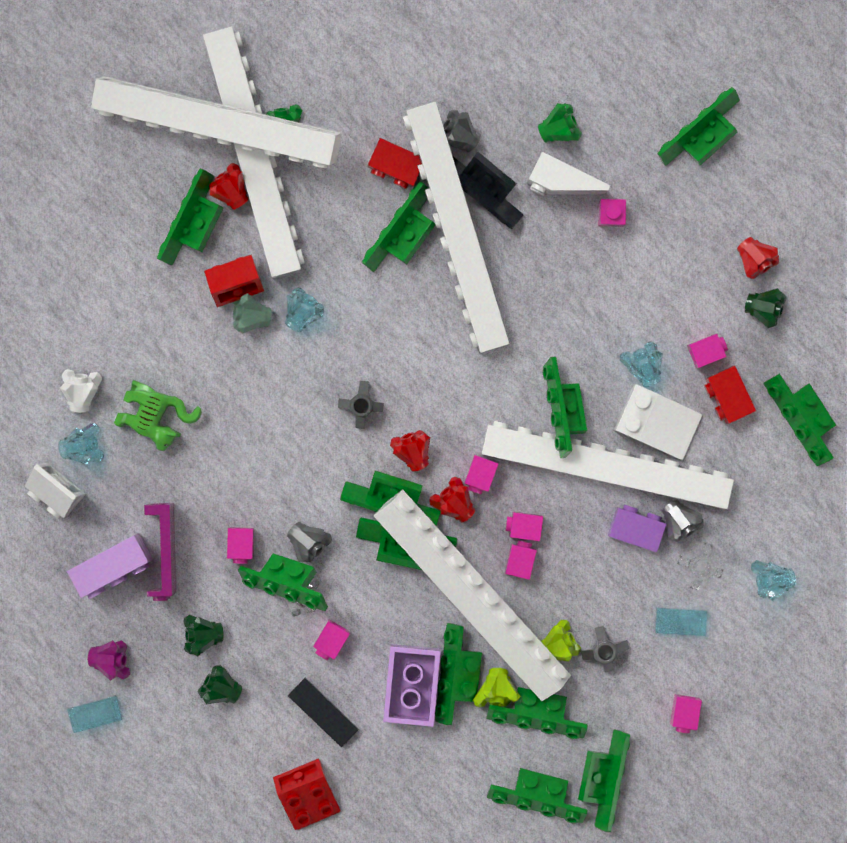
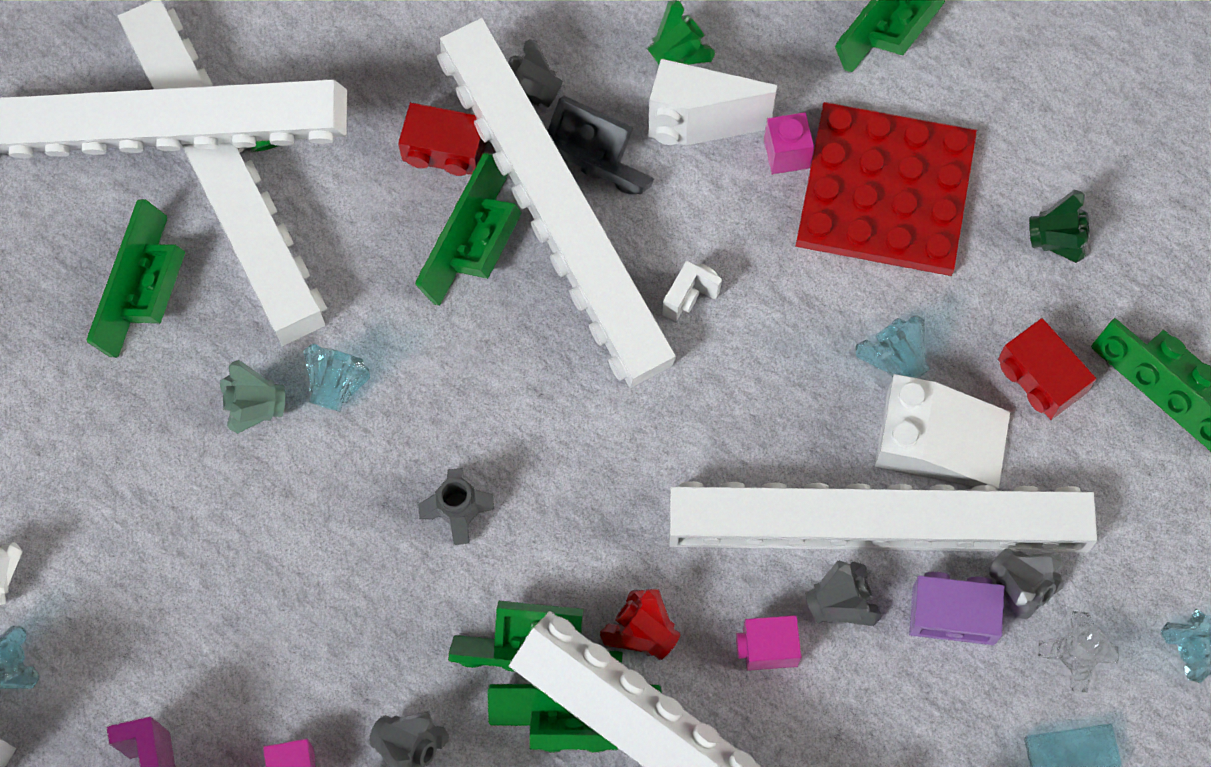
camera: 10 degrees left, 20 degrees down
(151, 410) = (108, 587): bright green animal -> none
(230, 187) = (190, 220): red rock -> none
(233, 280) = (208, 351): red brick -> none
(412, 449) = (556, 555): red rock -> none
(480, 474) = (677, 572): dark pink brick -> none
(520, 560) = (776, 701): dark pink brick -> none
(523, 300) = (686, 289): none -> white bracket
(566, 407) = (789, 436): green bracket -> none
(574, 508) = (843, 596): none -> dark grey rock
(667, 252) = (887, 189): none -> red plate
(707, 350) = (990, 311): dark pink brick -> none
(757, 257) = (1027, 161): red rock -> none

